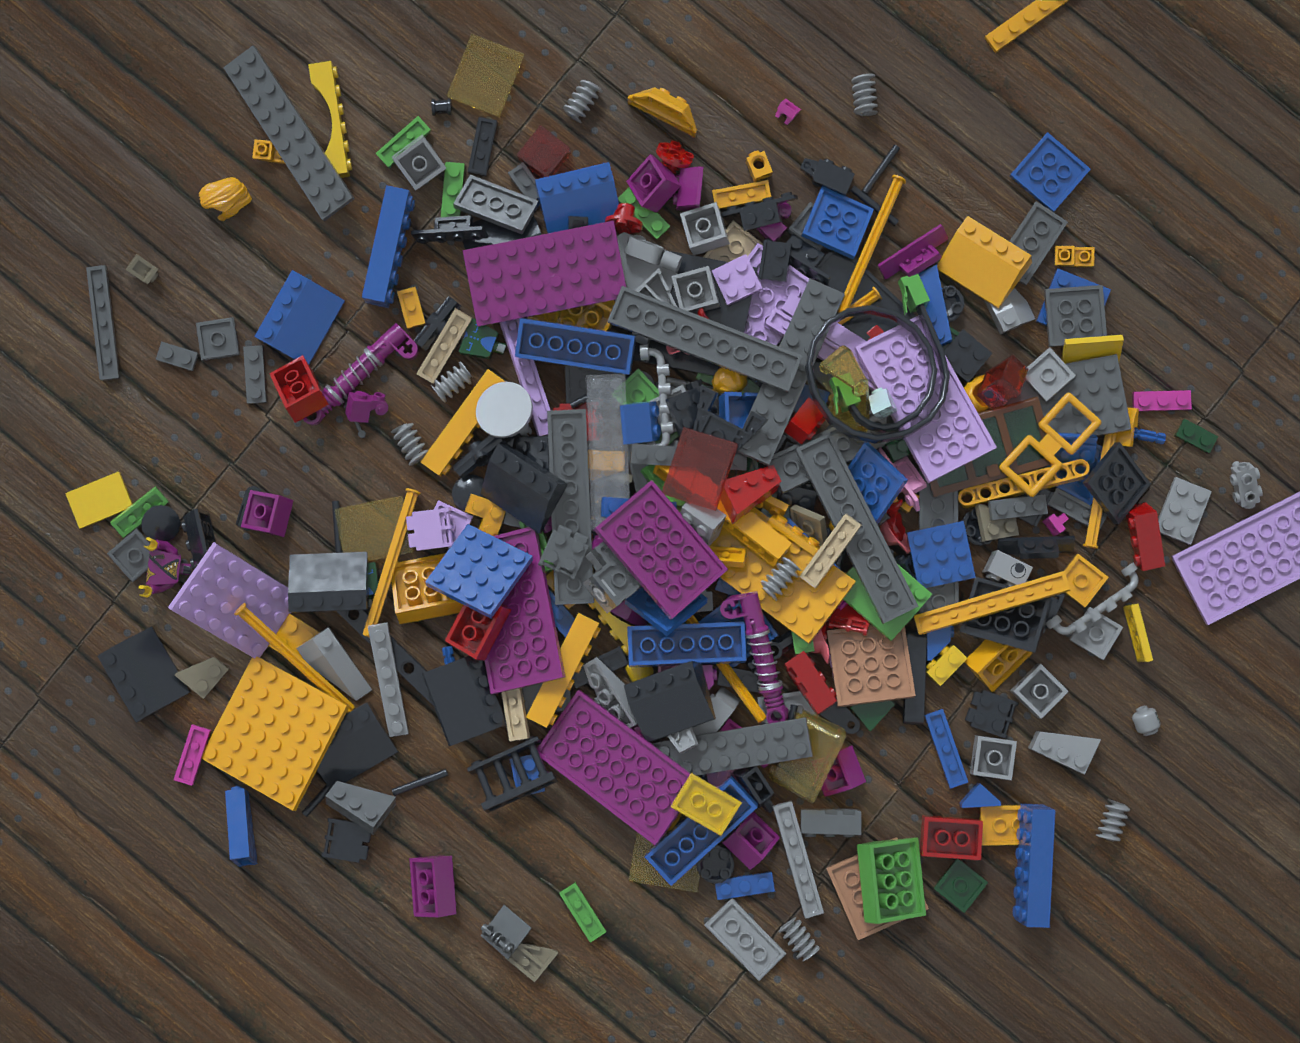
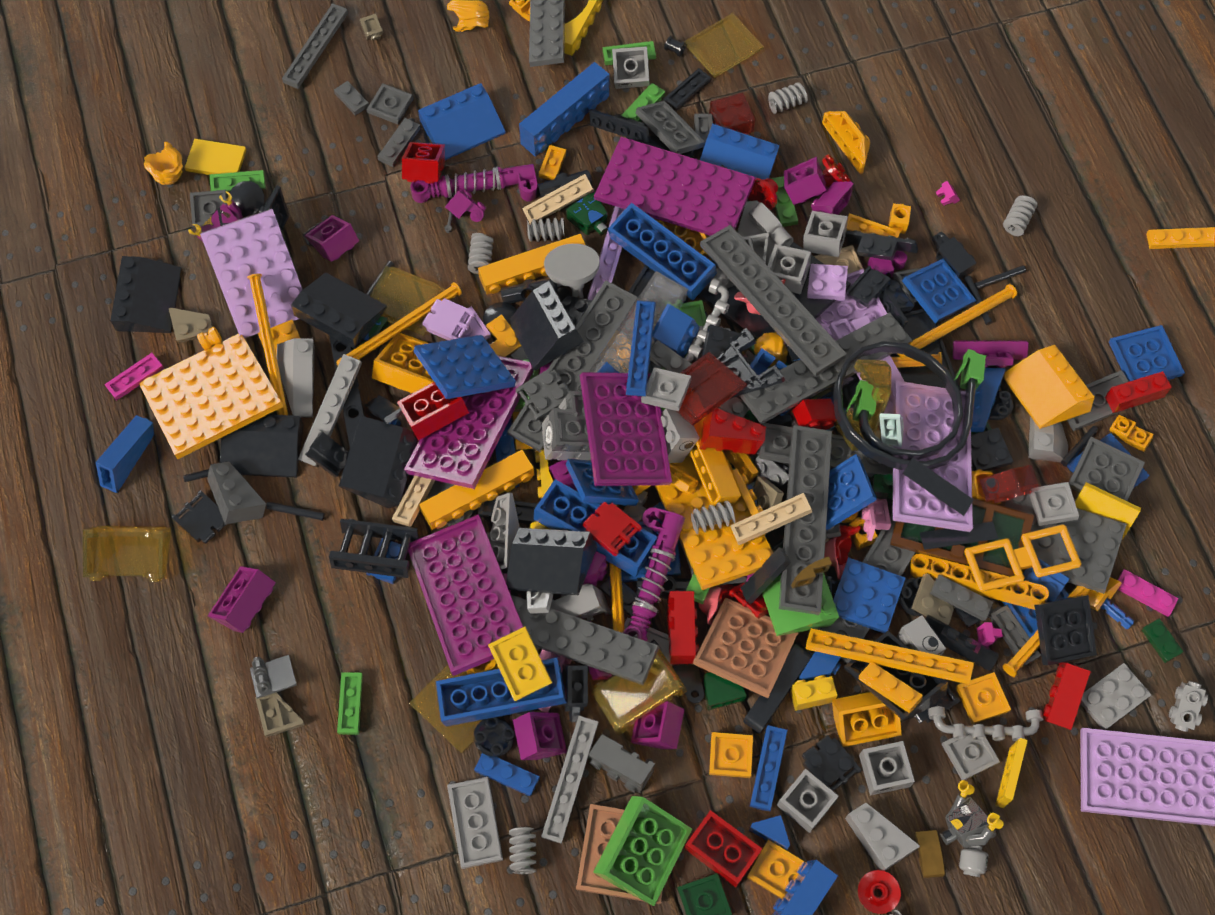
camera: 30 degrees right, 20 degrees down
(61, 540) = (165, 166): none -> light orange hair
(231, 679) = (209, 338): none -> light orange wheel
(307, 907) = (126, 551): none -> clear yellow windscreen
(414, 718) = (327, 454): none -> black plate
(433, 649) = (383, 409): none -> black tile
(626, 465) = (641, 348): none -> blue tile
(673, 492) = (666, 389): none -> light grey plate
(703, 642) = (611, 527): none -> red plate
(853, 600) = (765, 575): none -> black tile
(890, 583) = (807, 575): none -> pearl gold slope
(910, 757) = (731, 755): none -> light orange plate
(949, 431) = (938, 486): none -> black sticker
(971, 471) = (951, 537): none -> black sticker
(1008, 630) = (890, 687): none -> light orange plate
(1038, 298) = (1079, 446): none -> black bar
(1062, 219) = (1138, 392): none -> red brick
(1097, 795) = (886, 884): none -> red dish
(1109, 735) = (930, 854): none -> pearl gold slope
(1126, 694) = (968, 821): none -> torso

